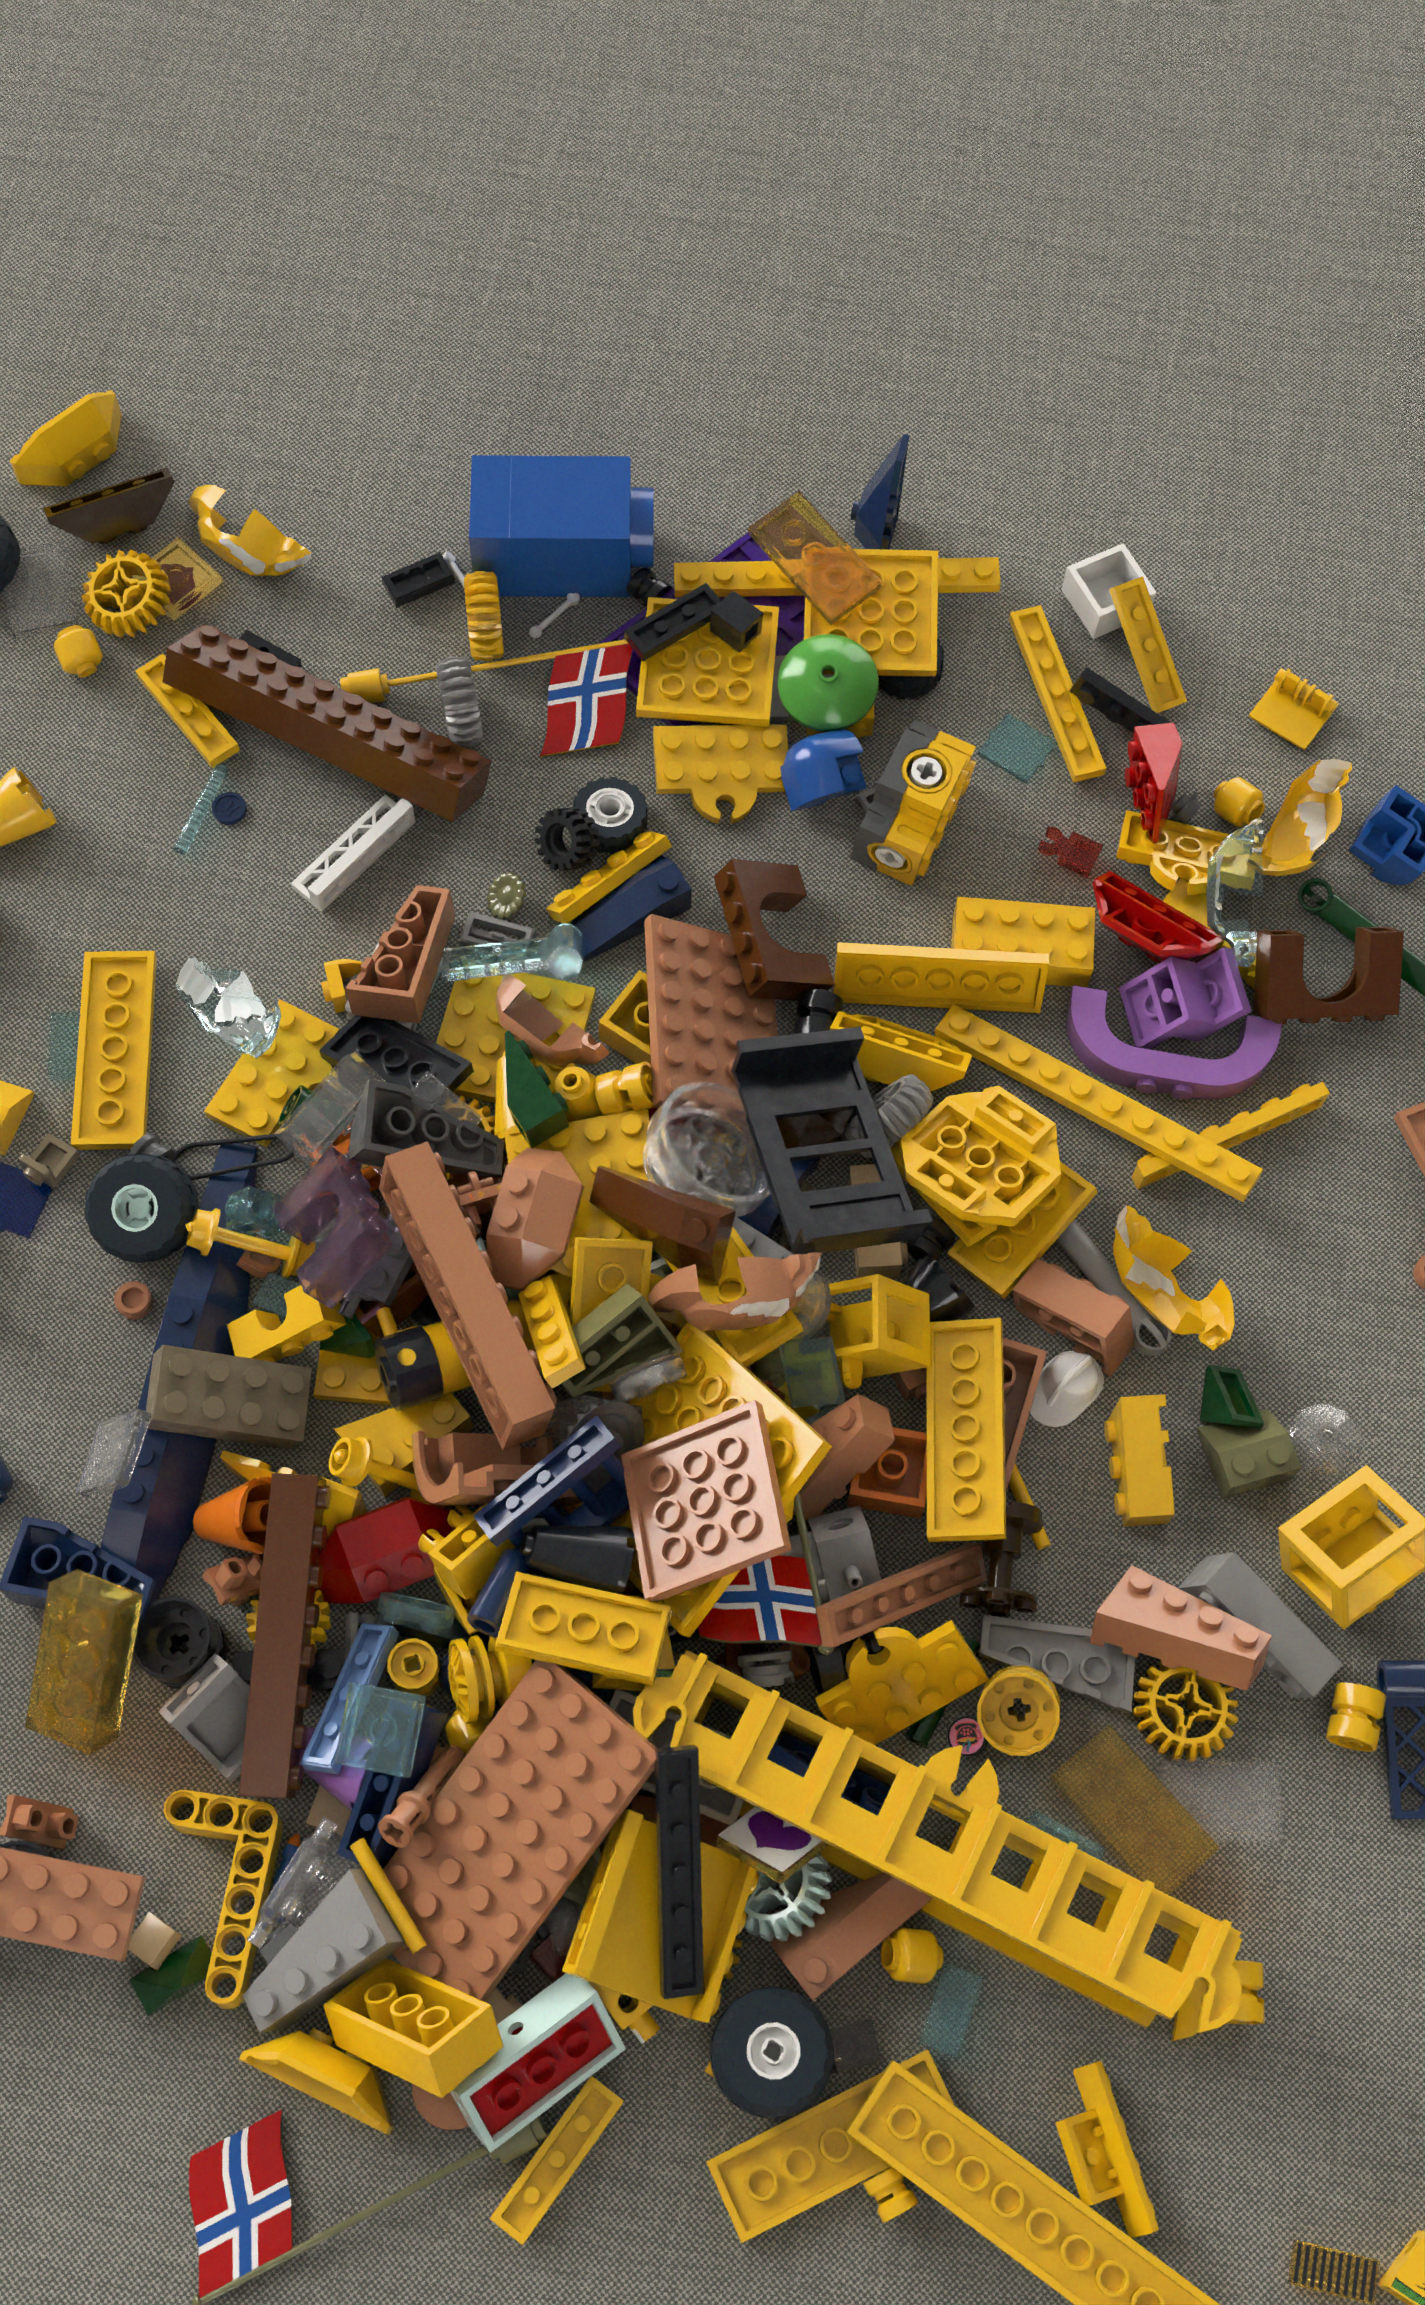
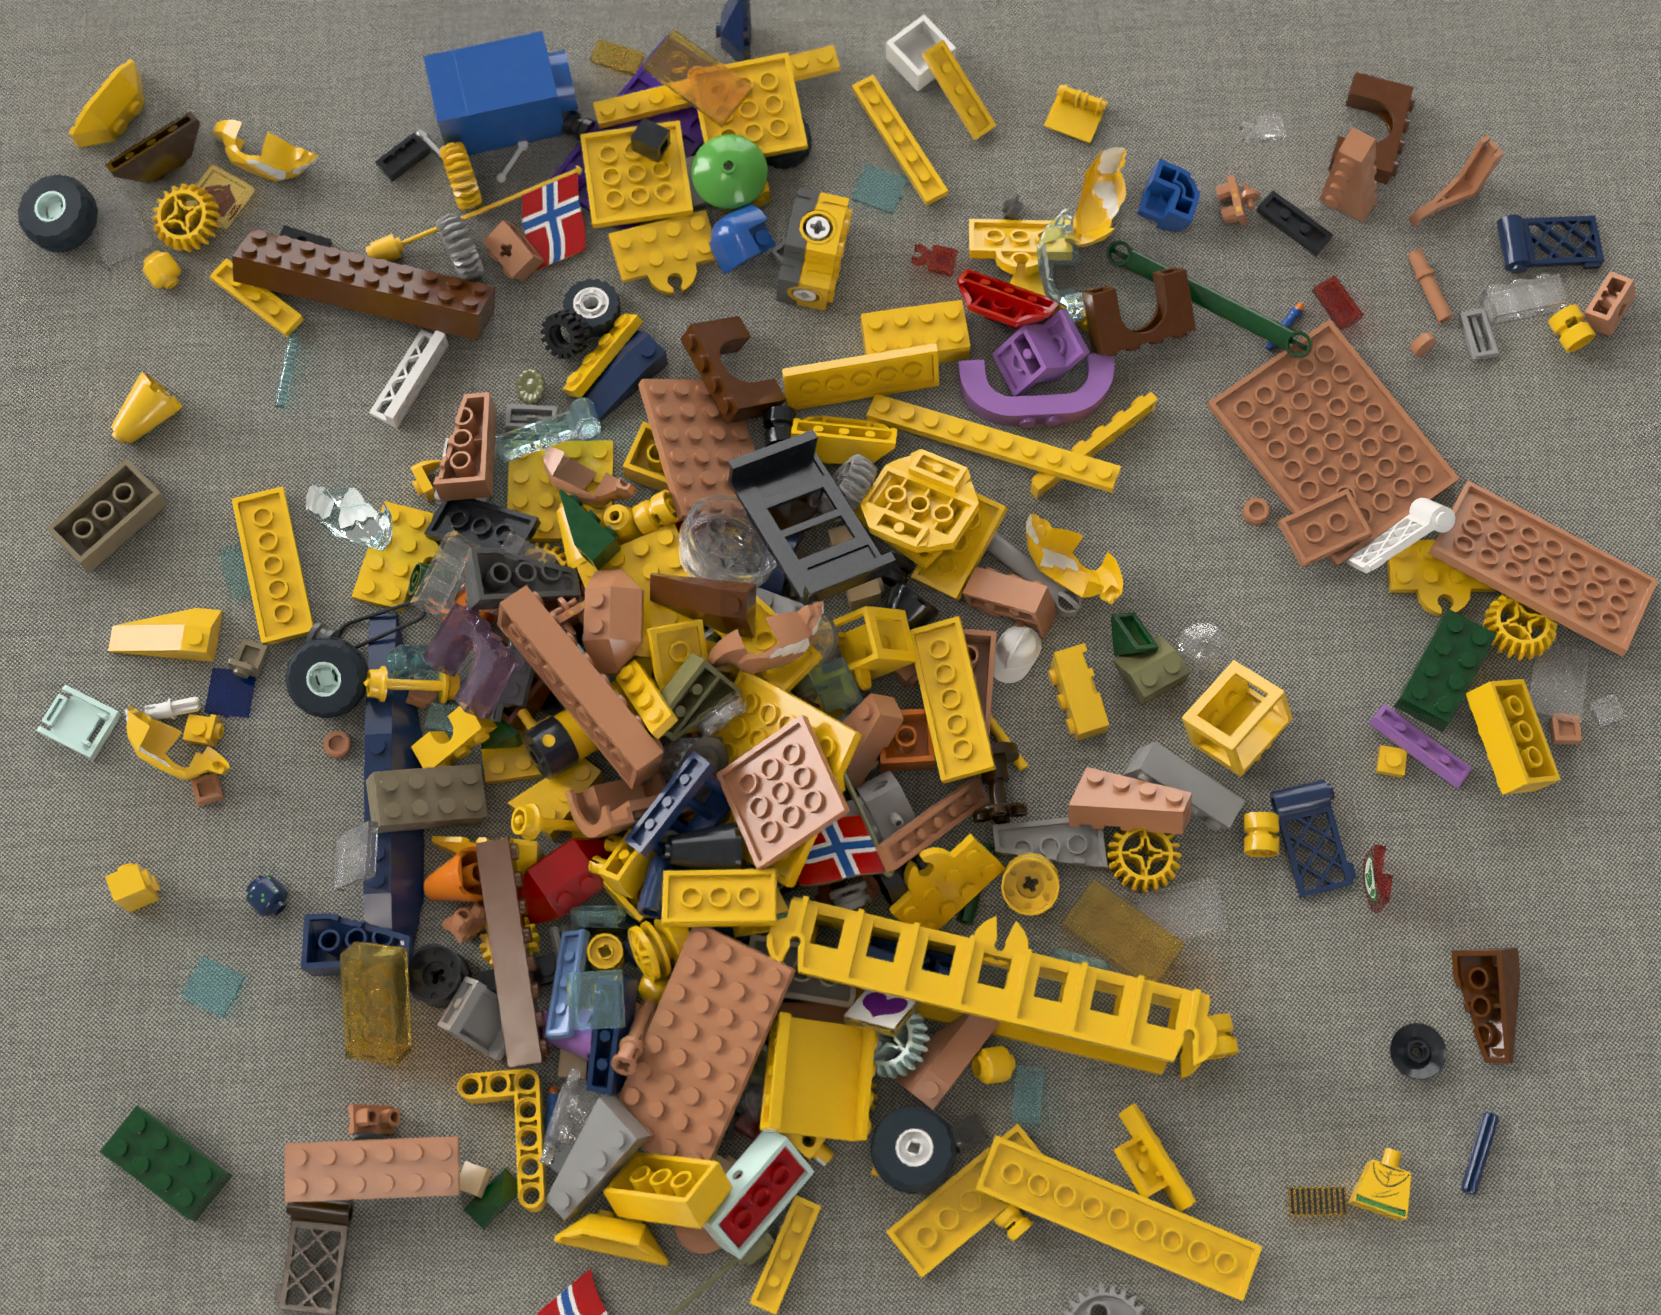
camera: 10 degrees left, 5 degrees up
(229, 808) = (307, 365): dark blue piece -> none
(388, 1895) = (629, 1109): yellow bar -> none
(526, 722) = (512, 251): none -> nougat brick
(672, 622) = (603, 151): black plate -> none
(679, 1871) = (823, 1044): black tile -> none
(718, 516) = (617, 57): none -> clear yellow plate
(967, 1732) = (998, 907): tile -> none
(1113, 702) = (947, 141): black plate -> none
(1154, 774) = (983, 188): red slope -> none
(1238, 802) = (1049, 194): yellow head -> none

